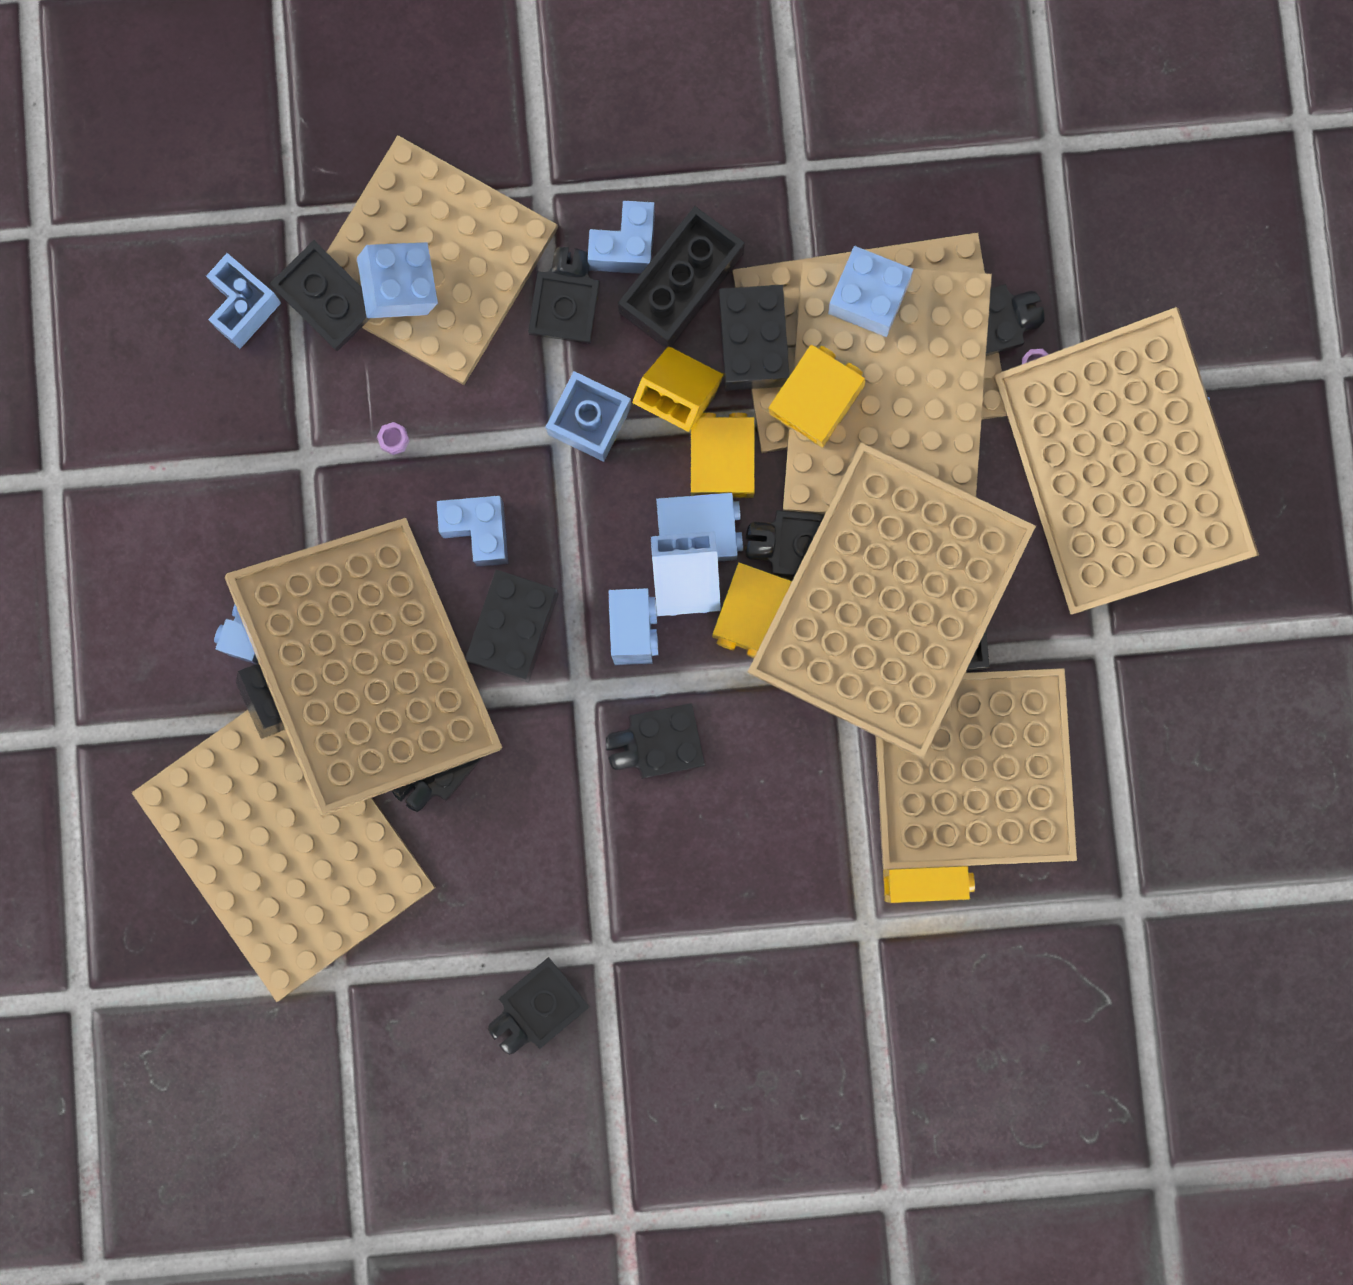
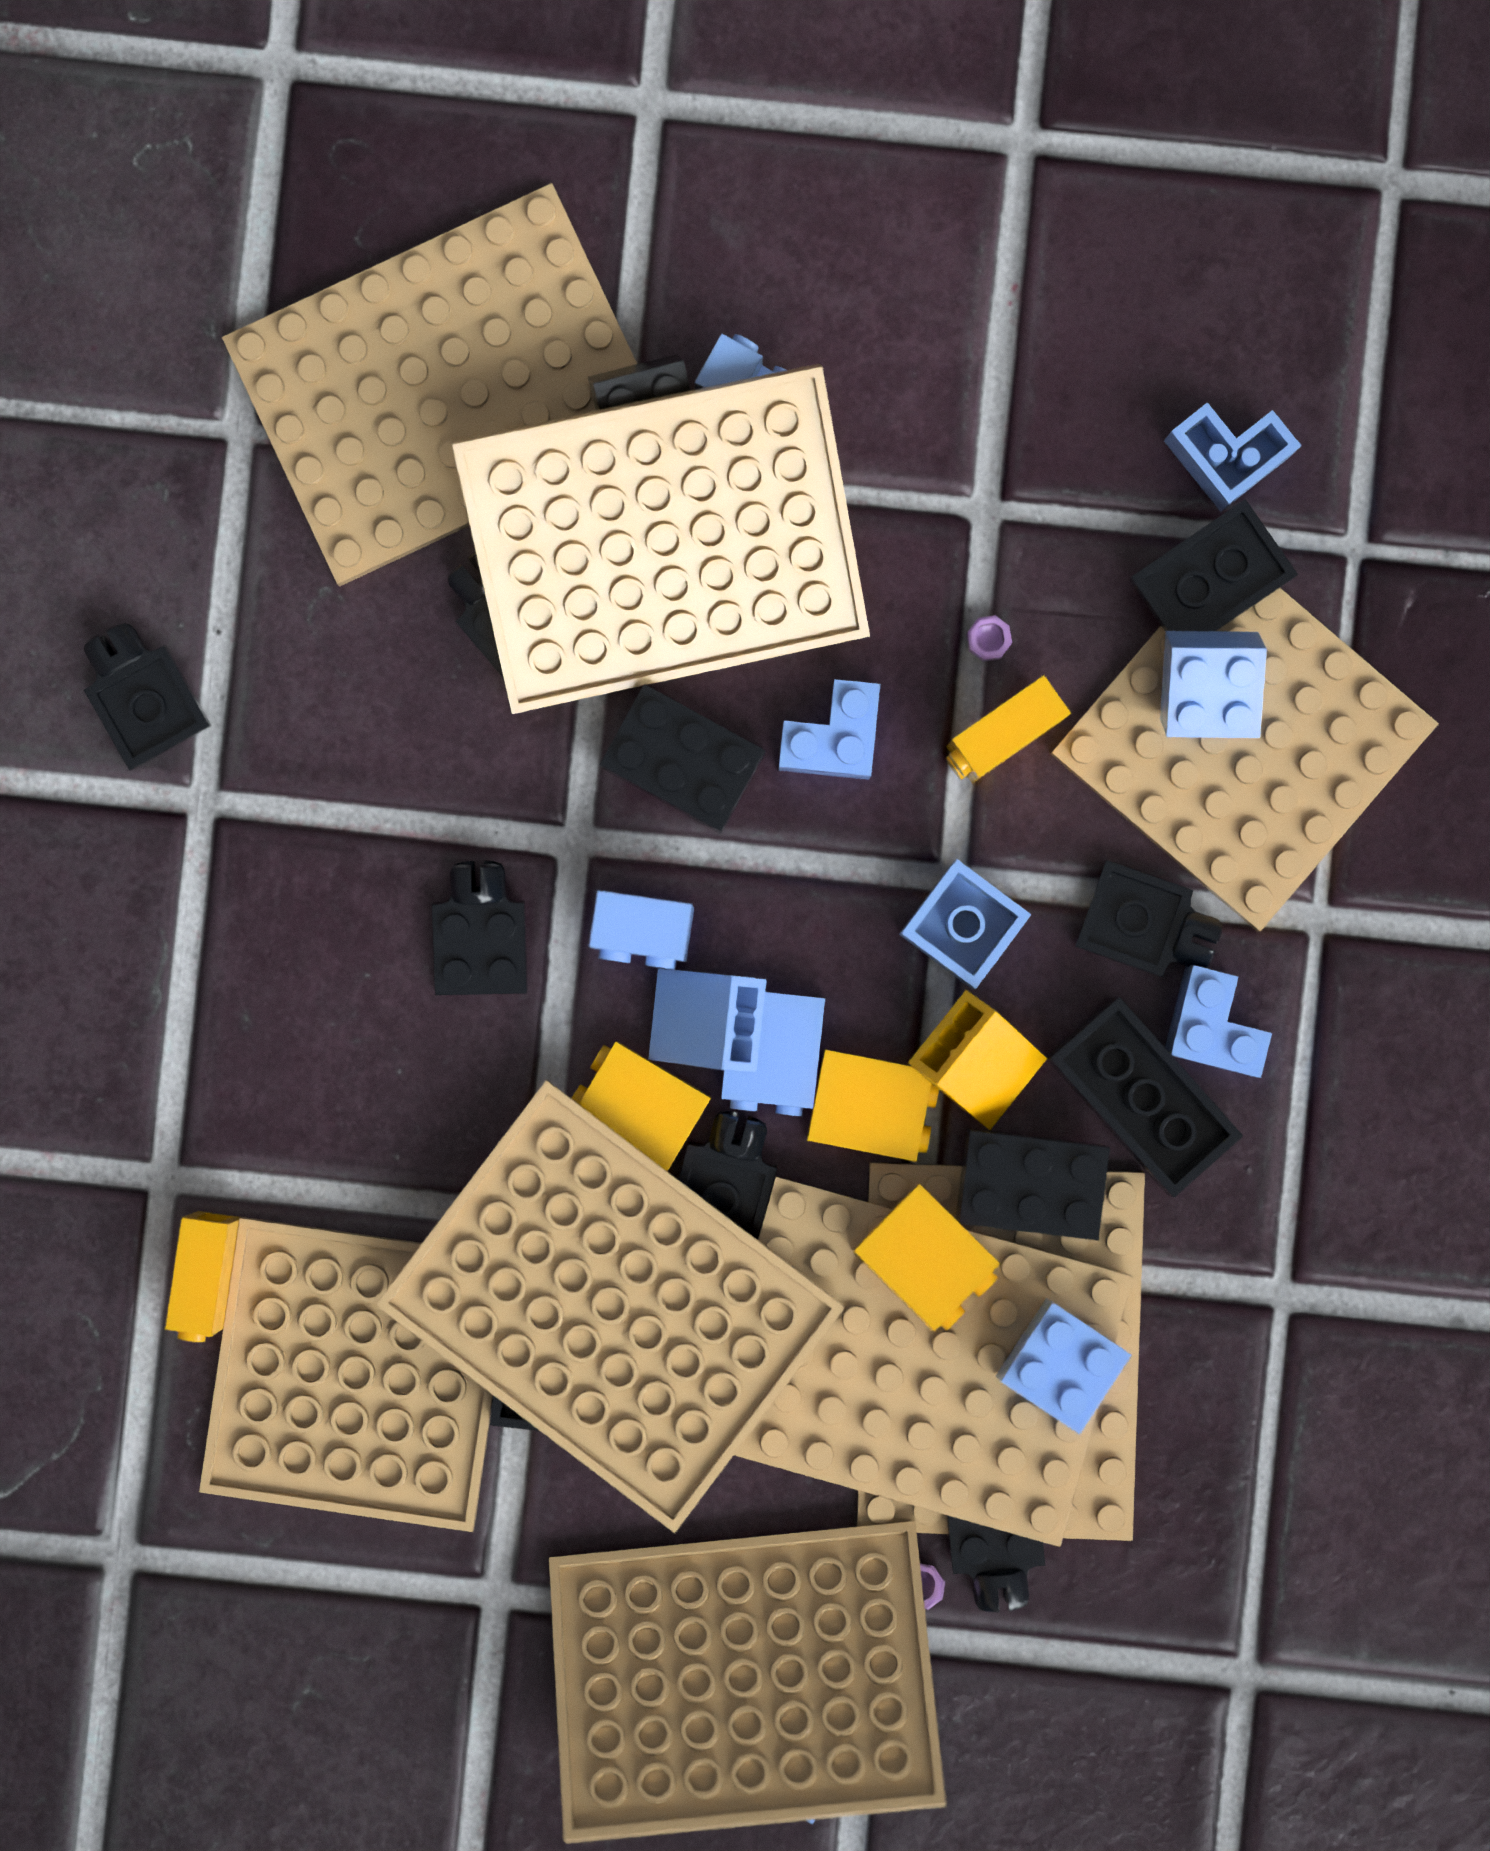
camera: 100 degrees right, 5 degrees up
(453, 411) = (1006, 730): none -> yellow brick

